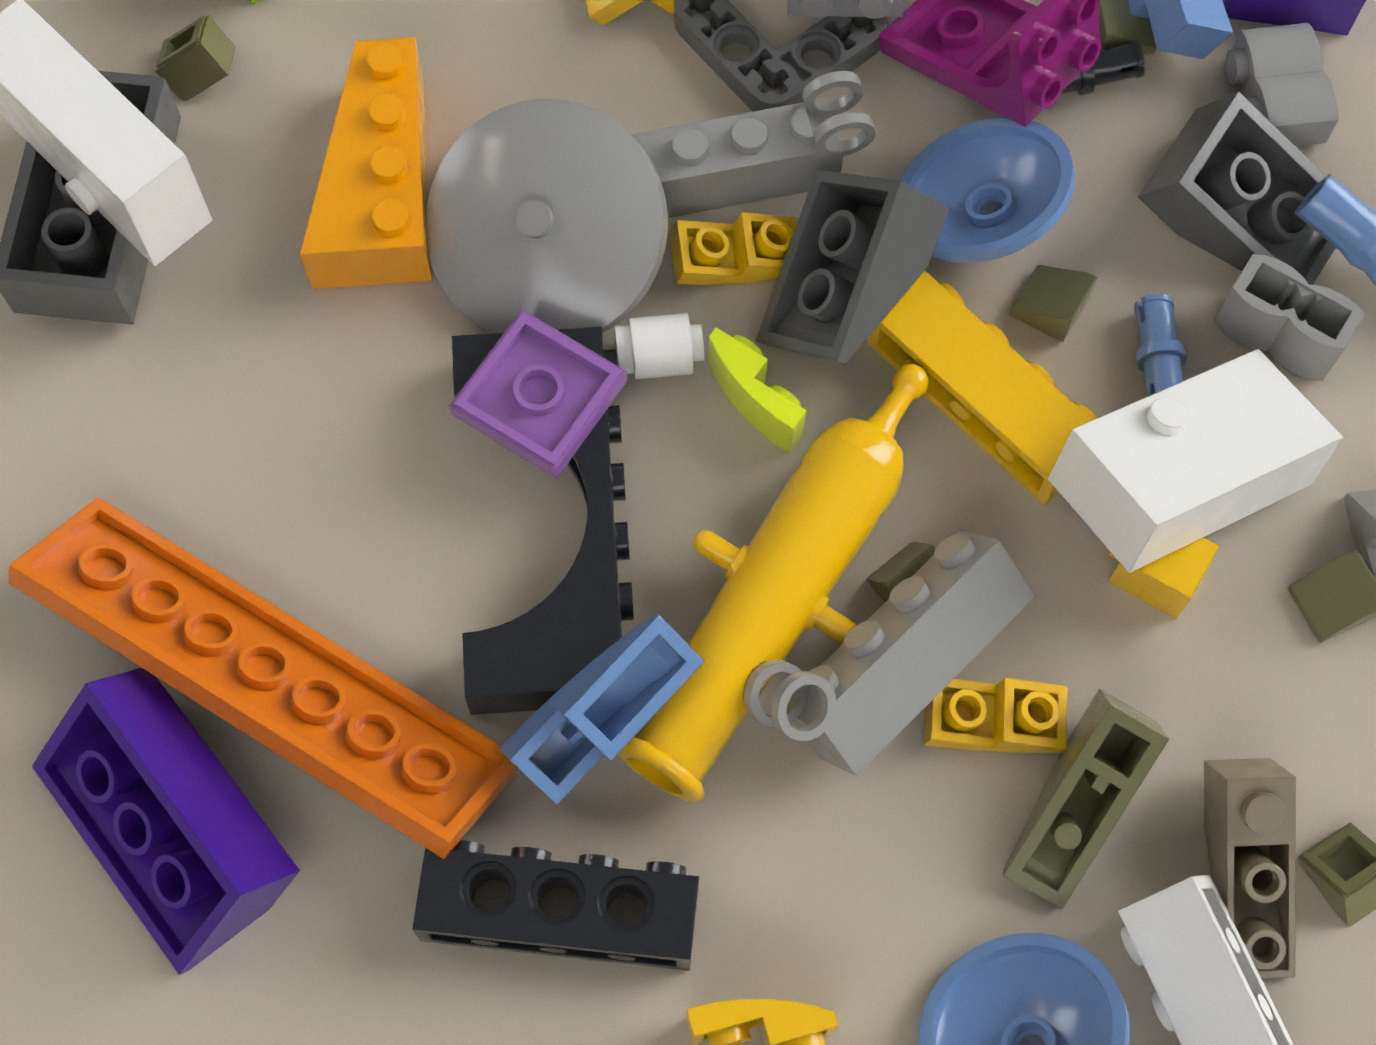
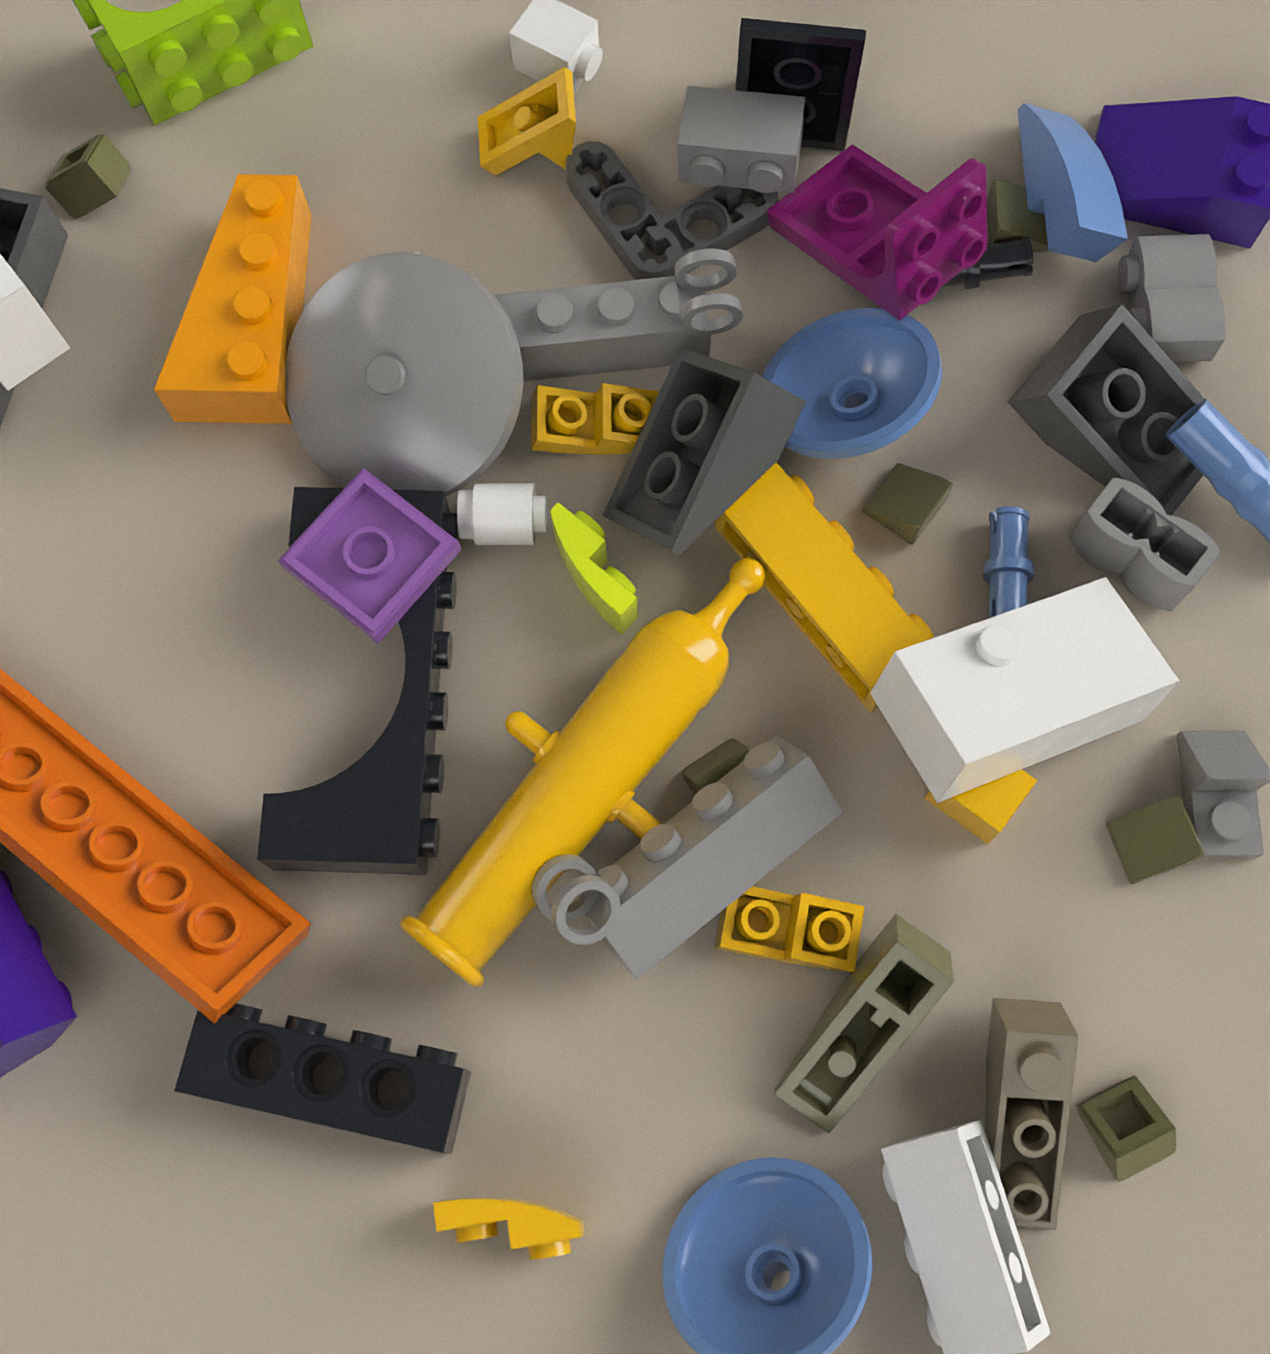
camera: 10 degrees right, 5 degrees up
(602, 707) = (386, 887): medium blue slope -> none

